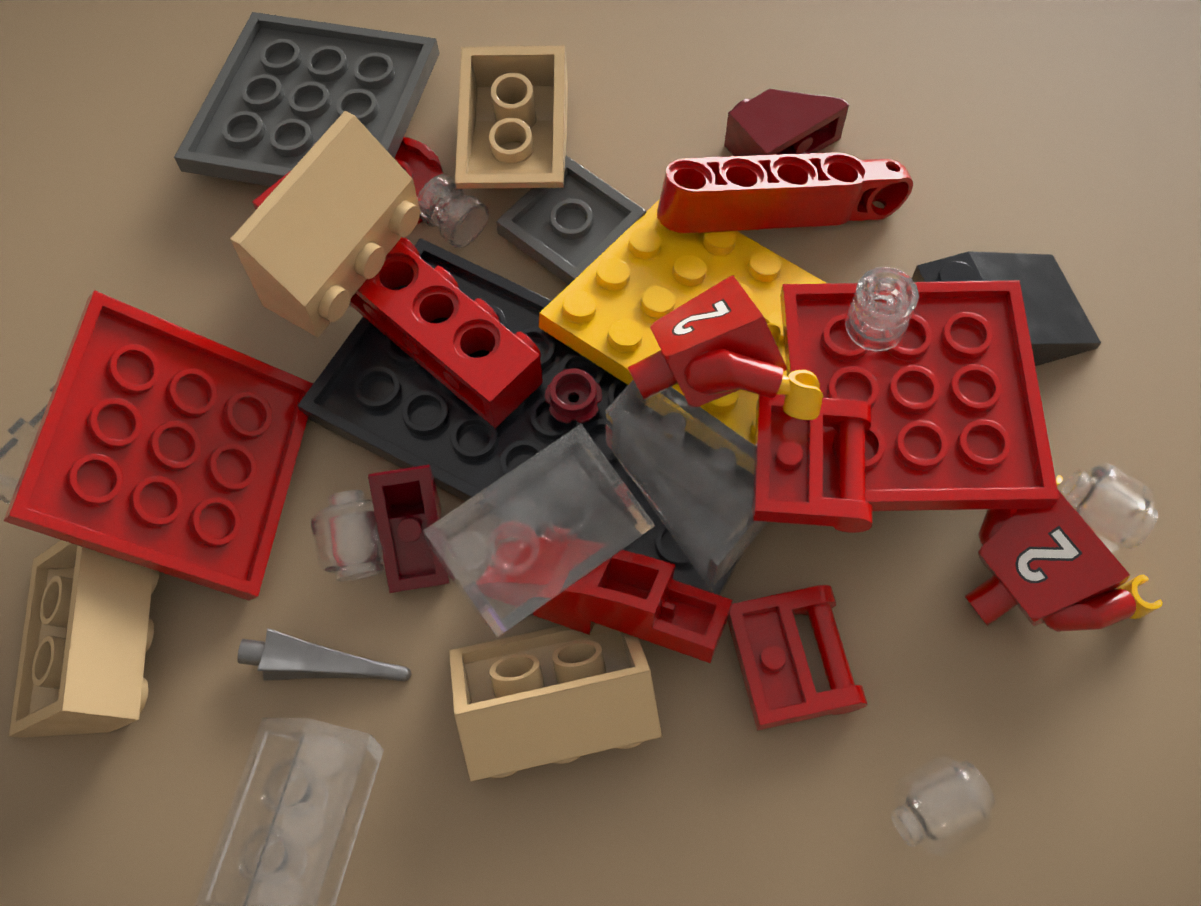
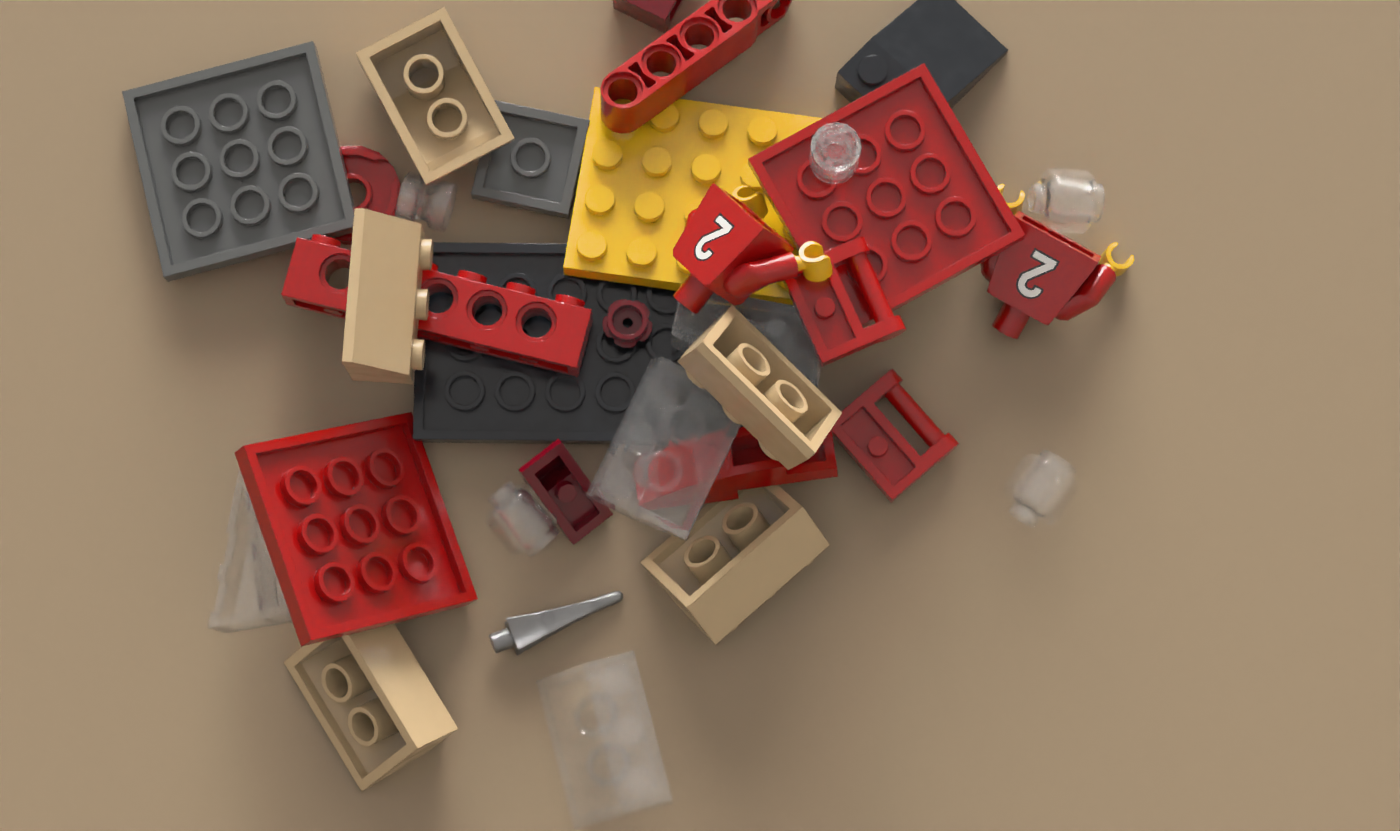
camera: 30 degrees left, 15 degrees up
(666, 499) = (760, 389): none -> tan slope

